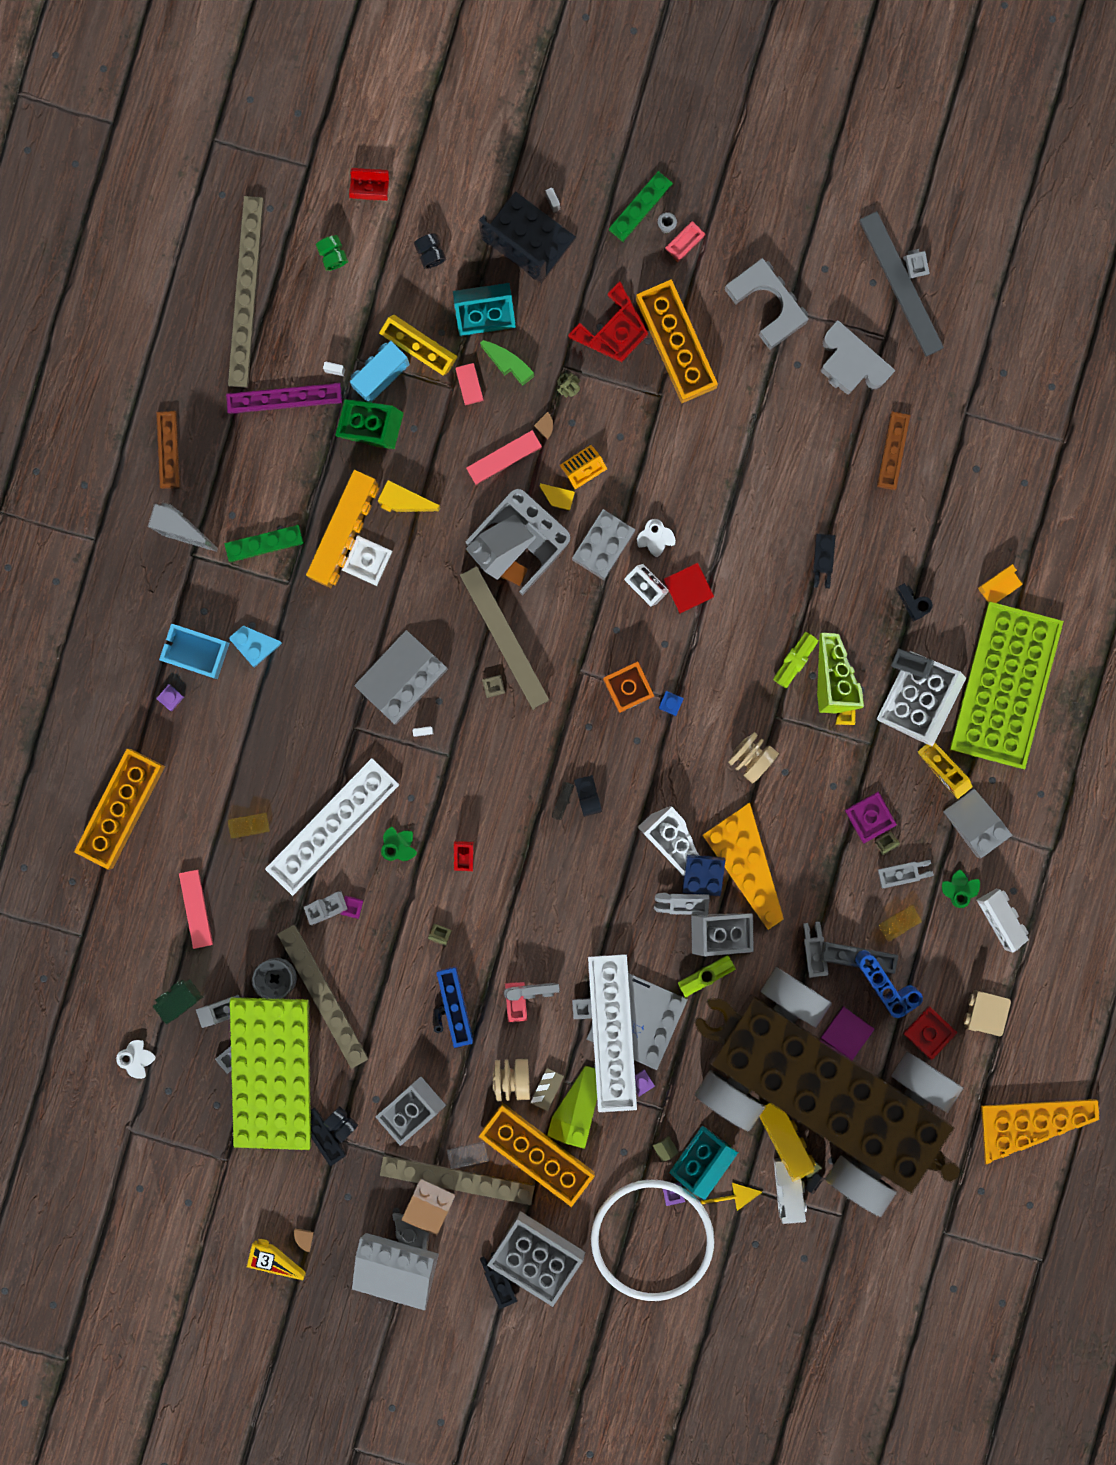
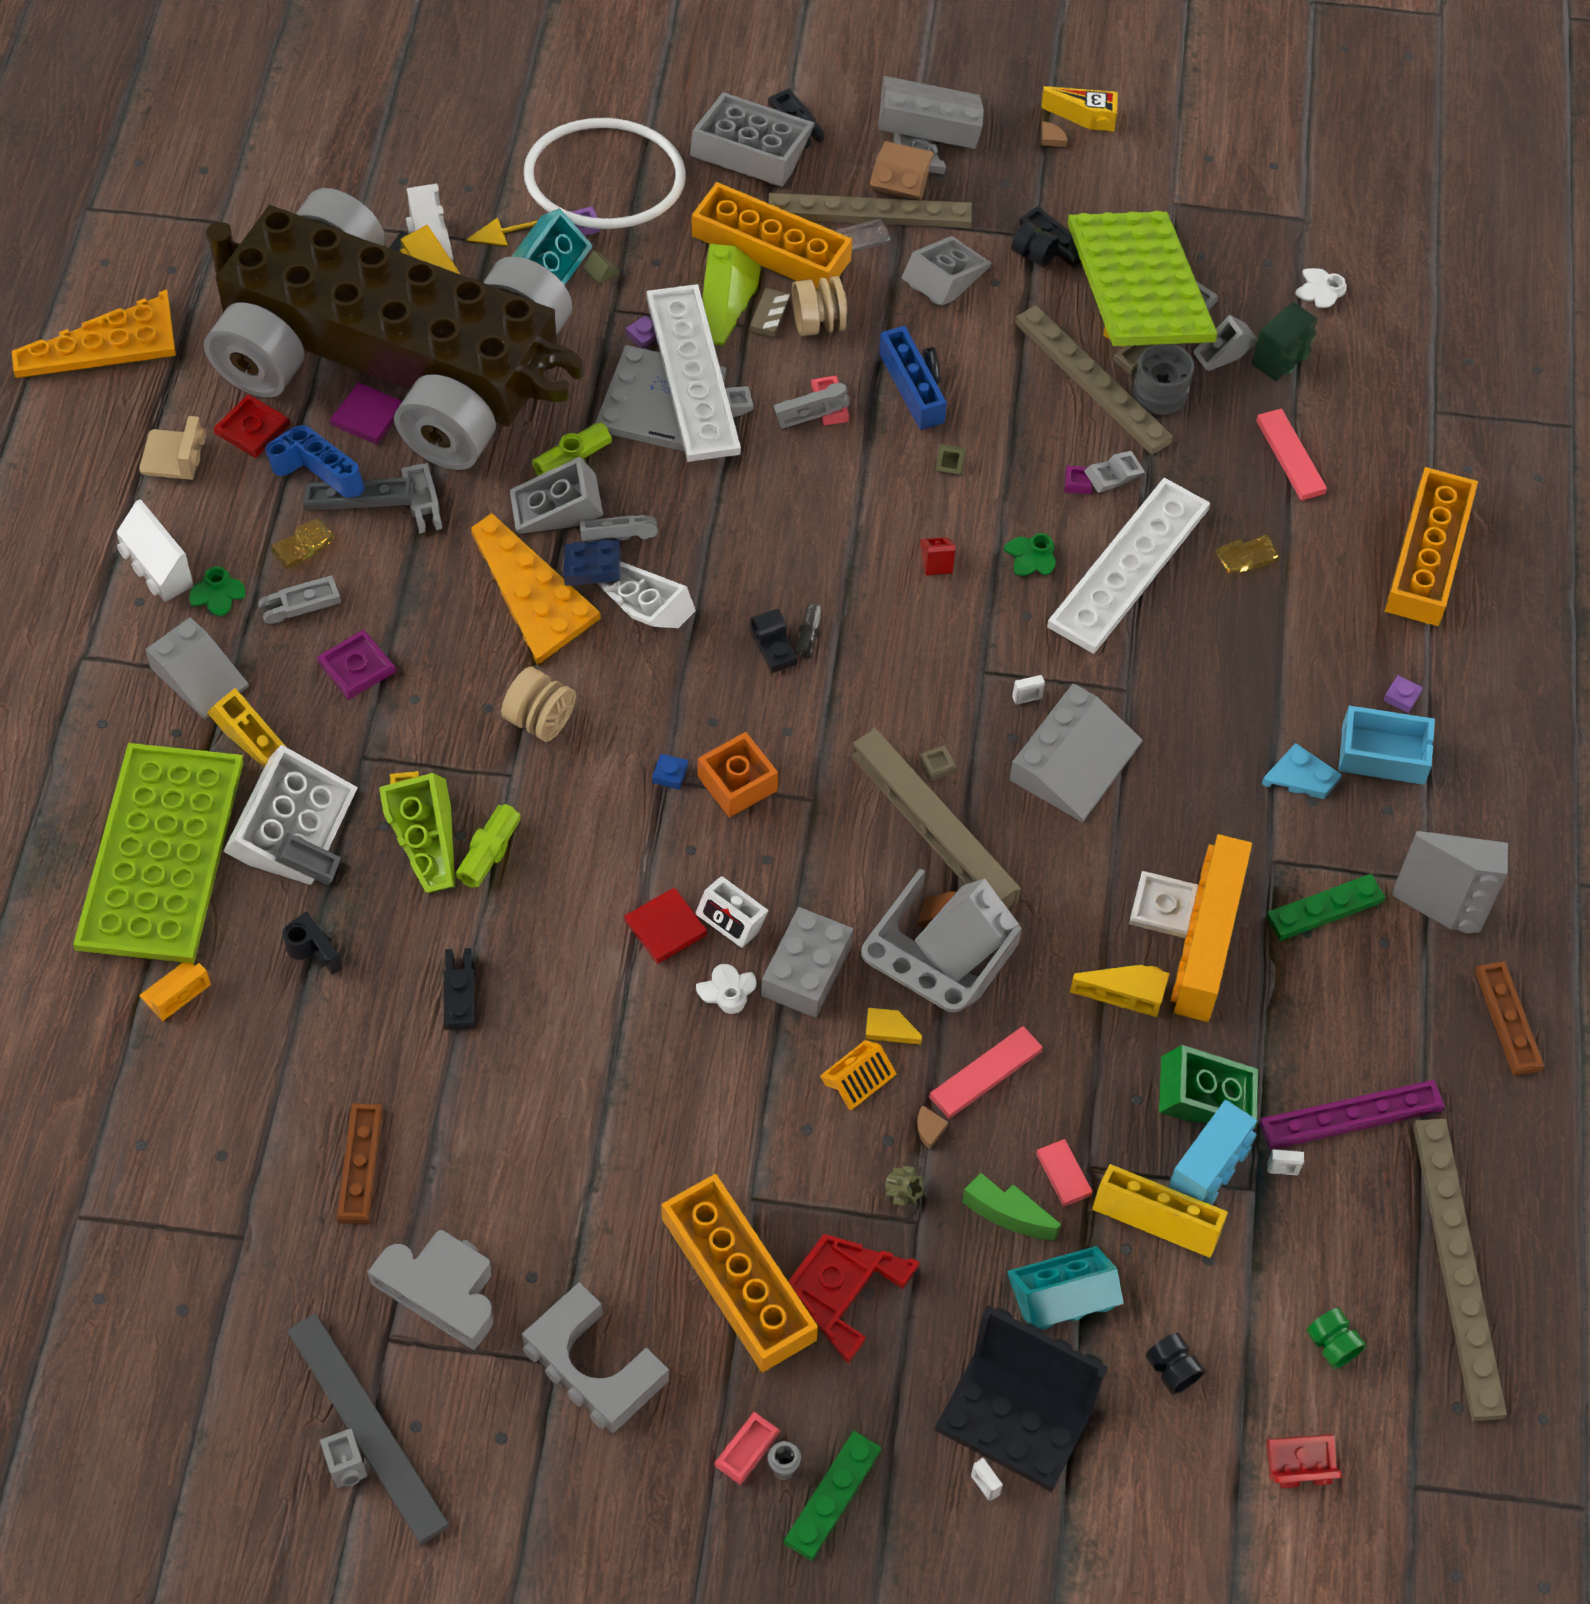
camera: 165 degrees right, 30 degrees down
(887, 843) = (328, 633): olive slope -> none

